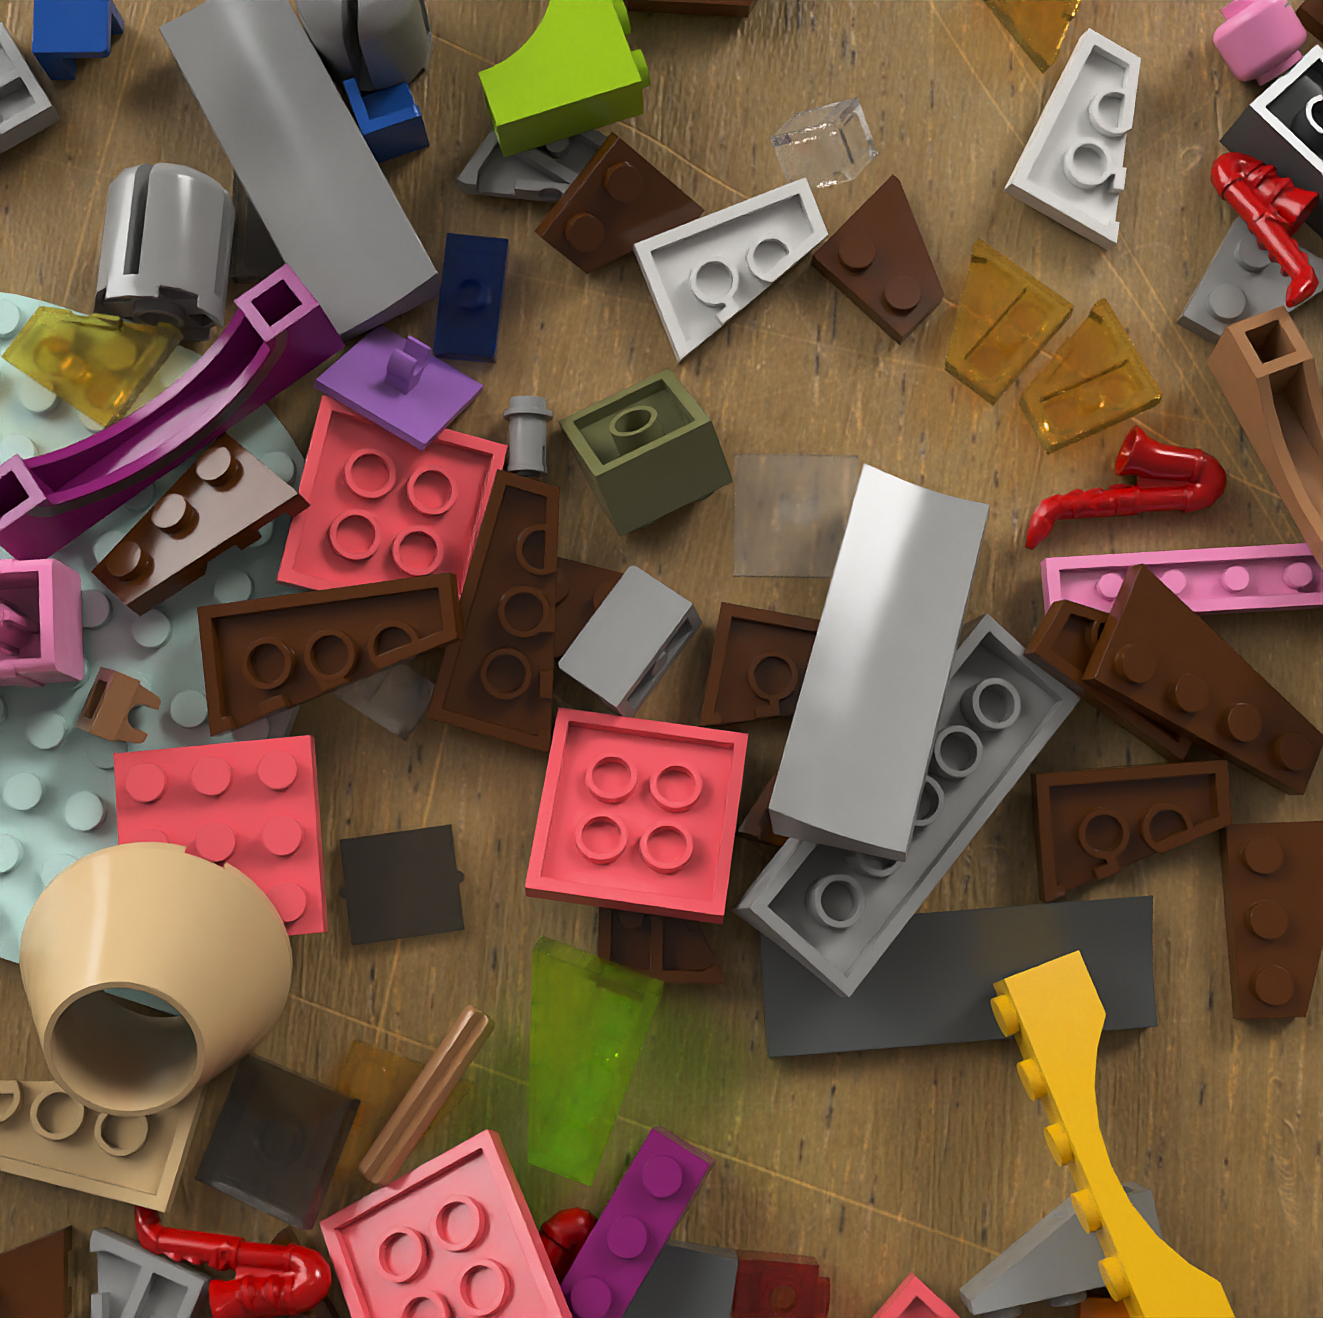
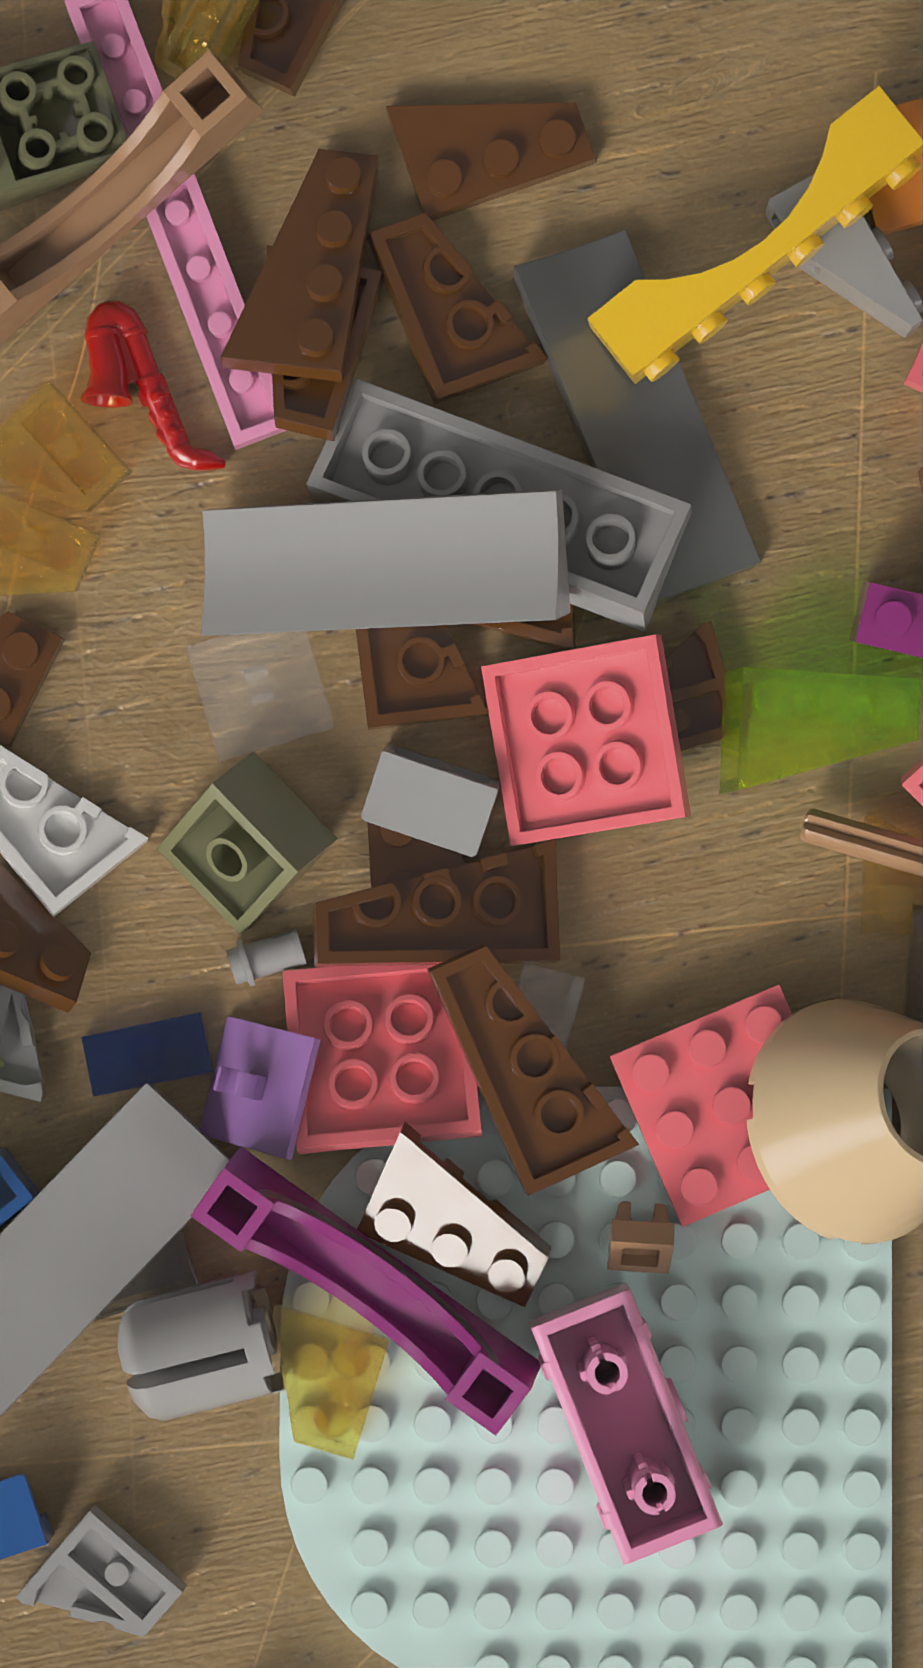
camera: 105 degrees left, 5 degrees up
(402, 884) = (712, 937): clear smoke piece -> none

